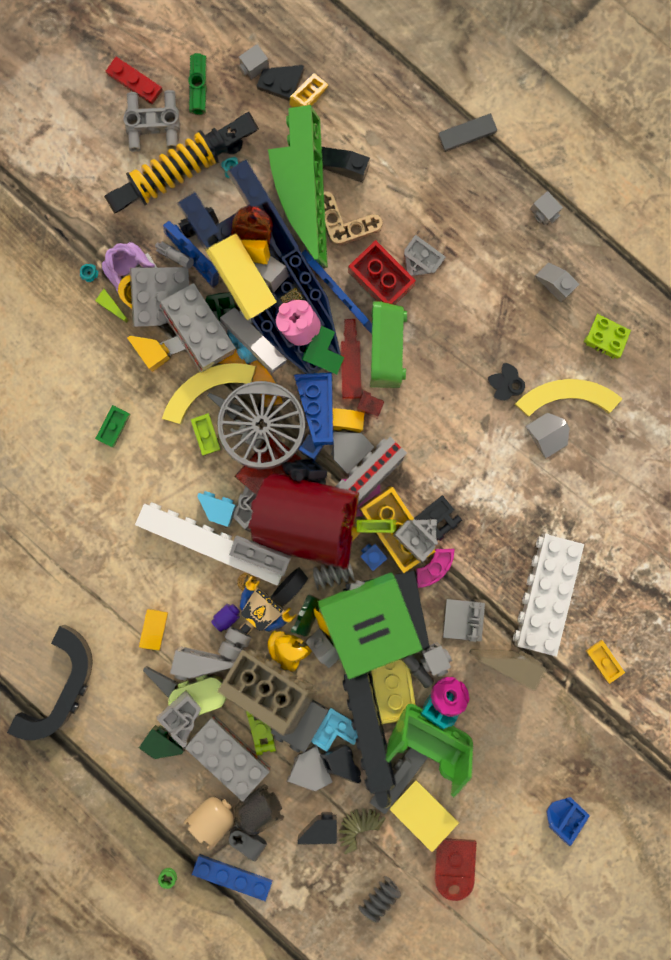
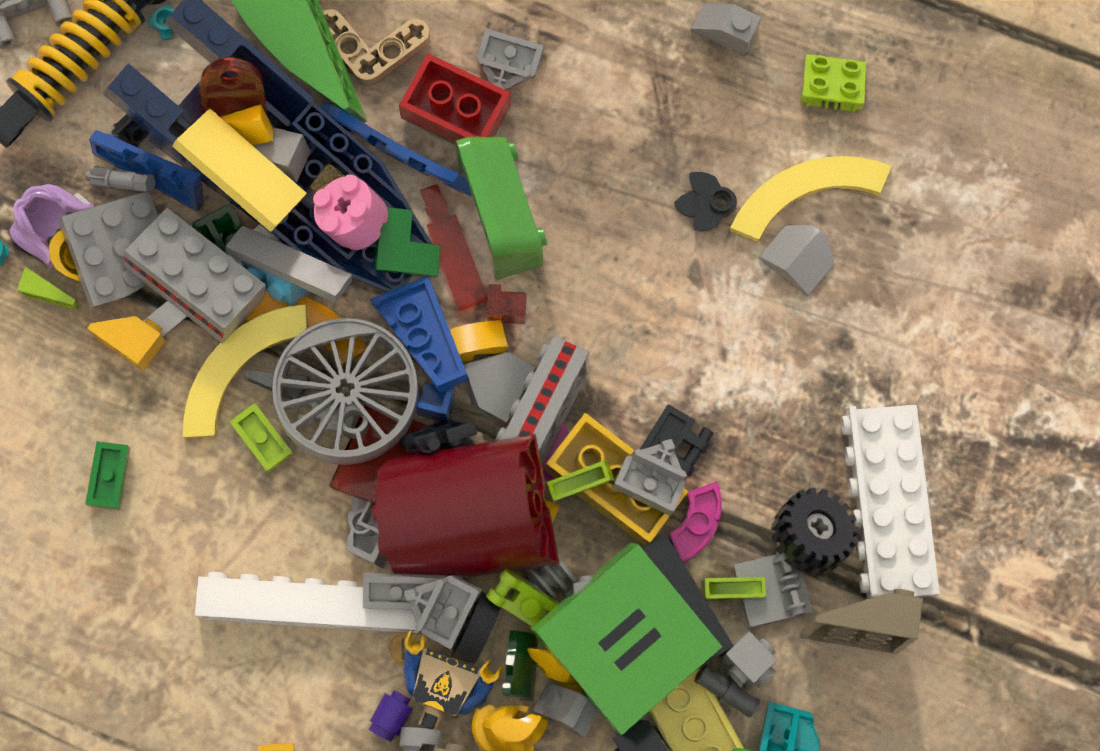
camera: 20 degrees left, 10 degrees down
(217, 510) = (320, 548): medium azure slope -> none
(273, 571) = (443, 608): none -> light grey slope
(321, 584) = (526, 603): none -> lime plate
(373, 556) = (592, 536): blue brick -> none
(440, 701) = (790, 731): dark pink tile -> none
(441, 613) = (733, 588): none -> lime piece
(490, 603) = (802, 542): none -> black bush
(605, 661) = (1018, 575): yellow plate -> none

